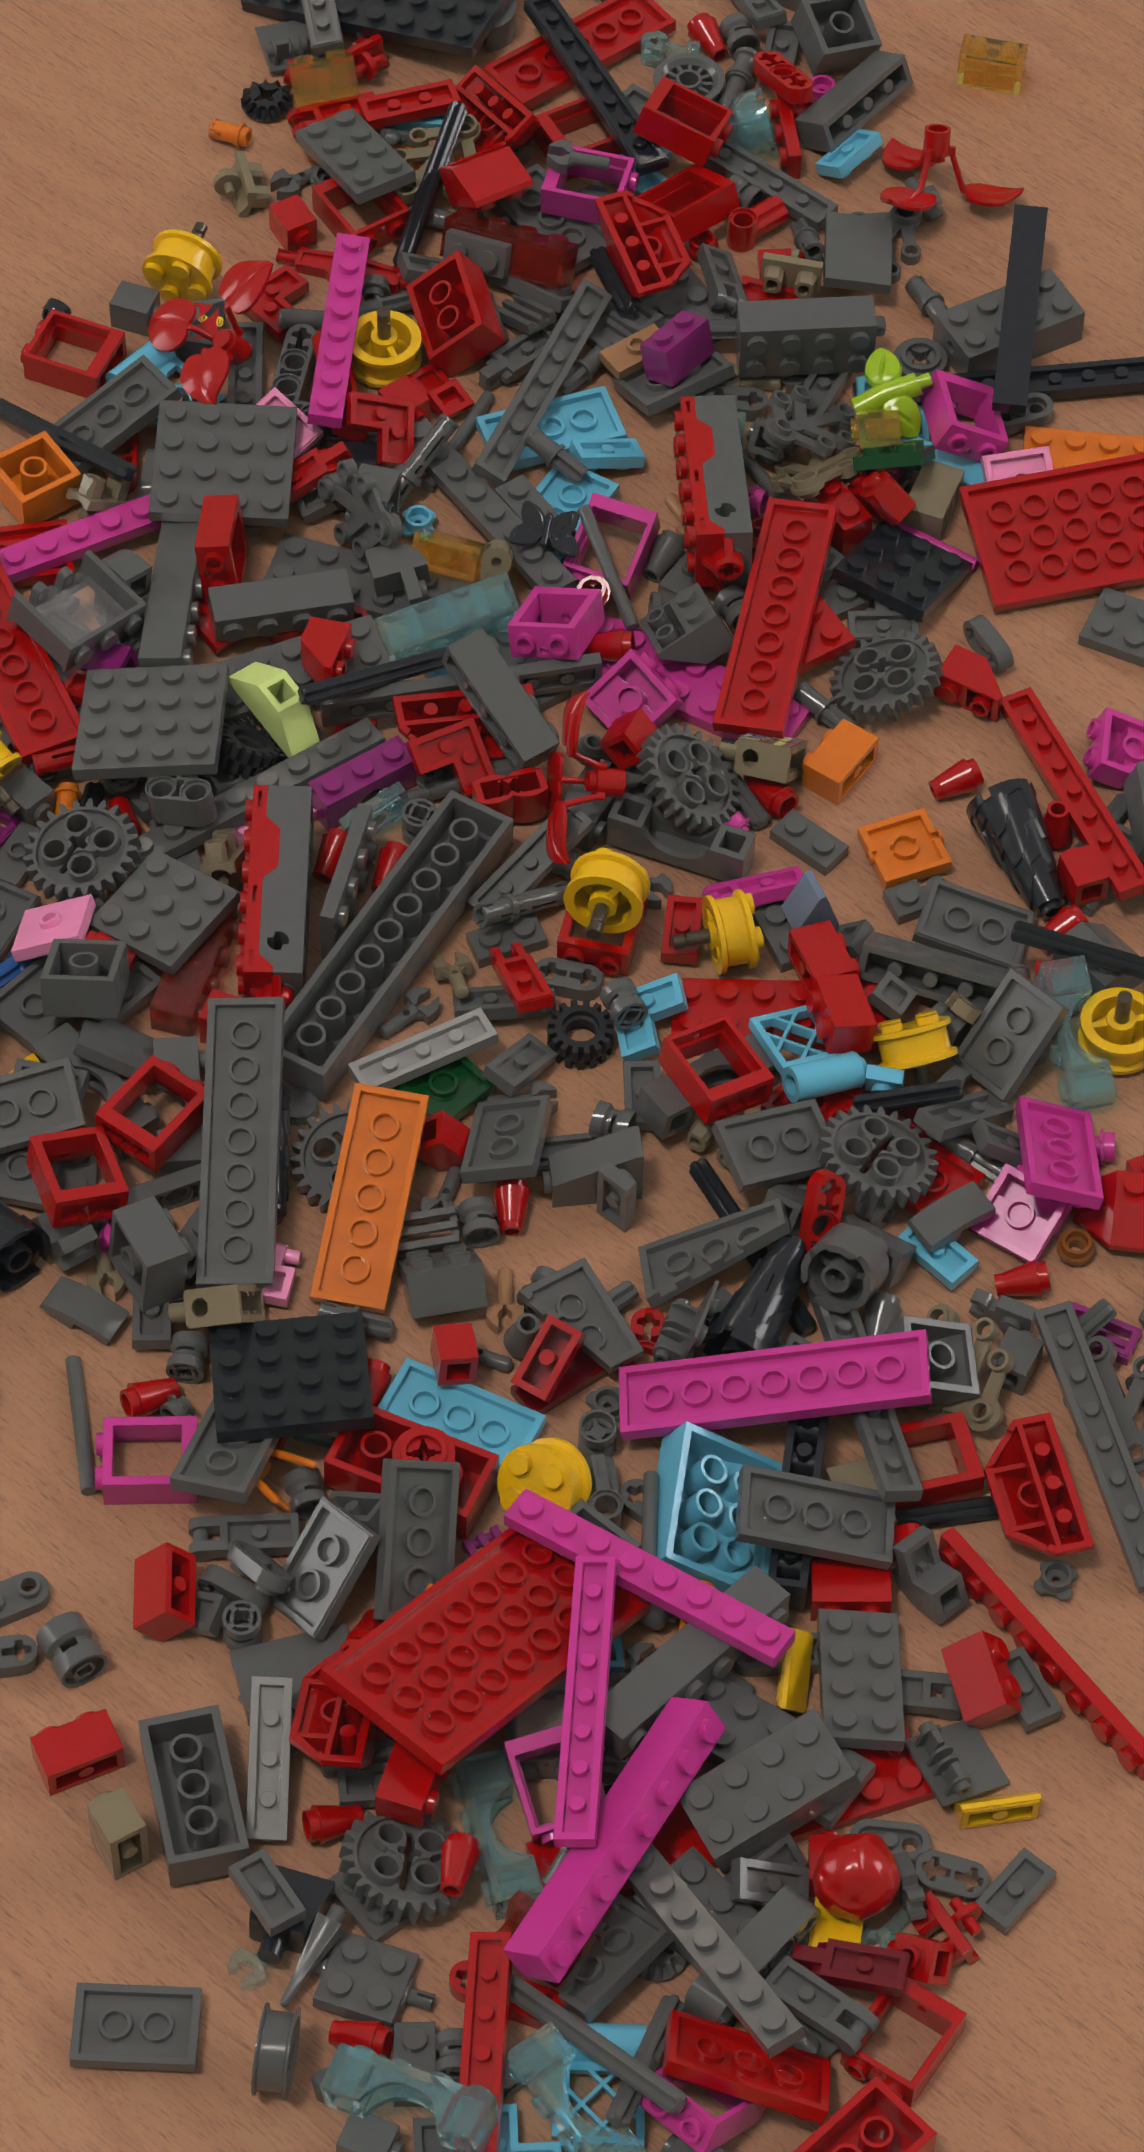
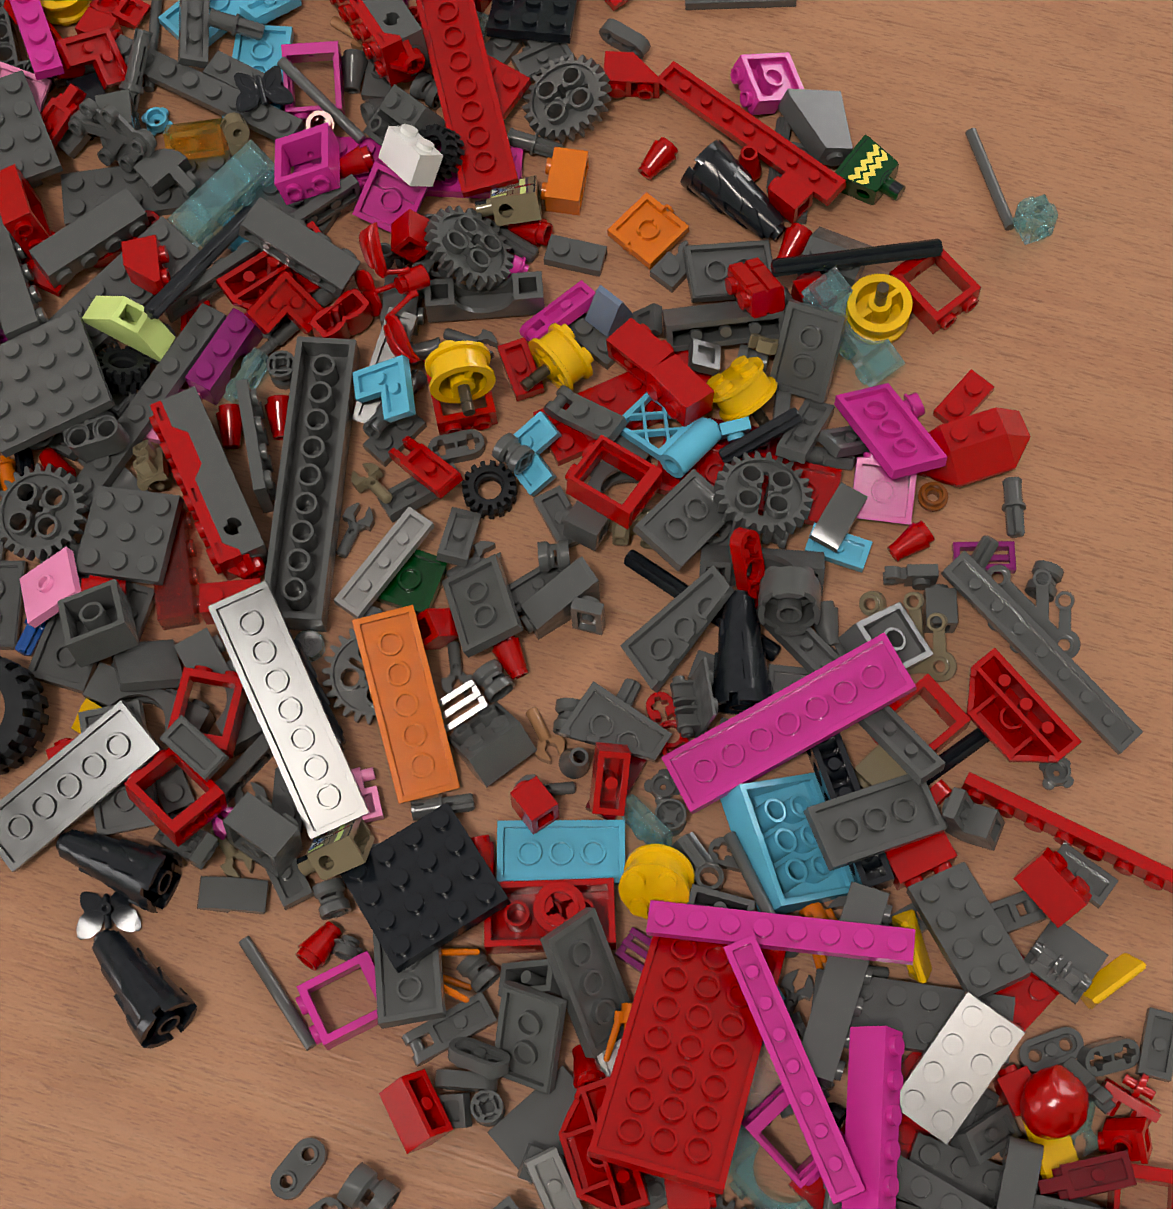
camera: 20 degrees left, 15 degrees up
(120, 1133) = (194, 748): none -> dark grey tile
(524, 874) = (389, 381): none -> medium azure plate
(564, 1420) = (645, 823): none -> clear light blue plate
(672, 657) = (410, 155): none -> white brick
(706, 669) = (449, 148): none -> black tyre
(724, 996) = (585, 415): none -> dark grey plate
(984, 945) = (755, 288): none -> red brick

